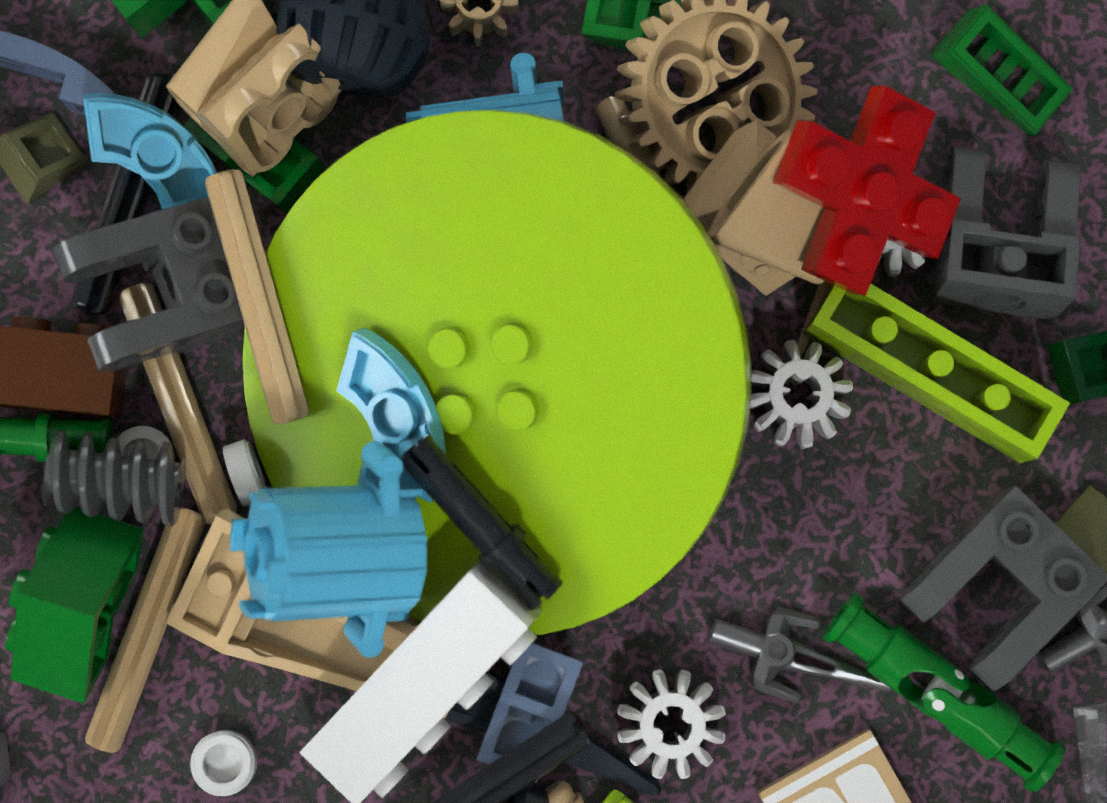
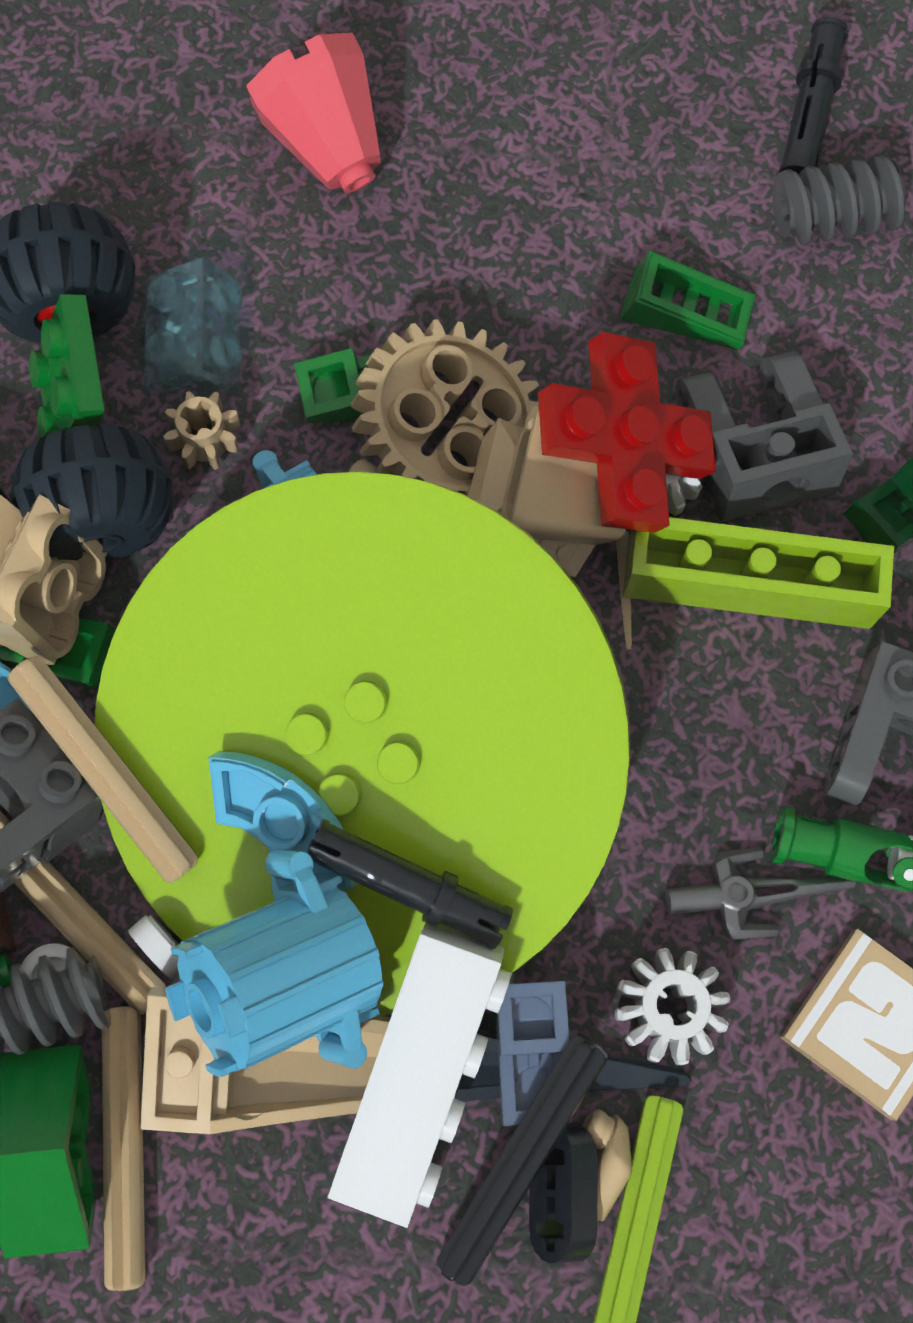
camera: 25 degrees left, 10 degrees down
(223, 763) = (255, 1246): white tile -> none
(797, 372) = (669, 658): white gear -> none

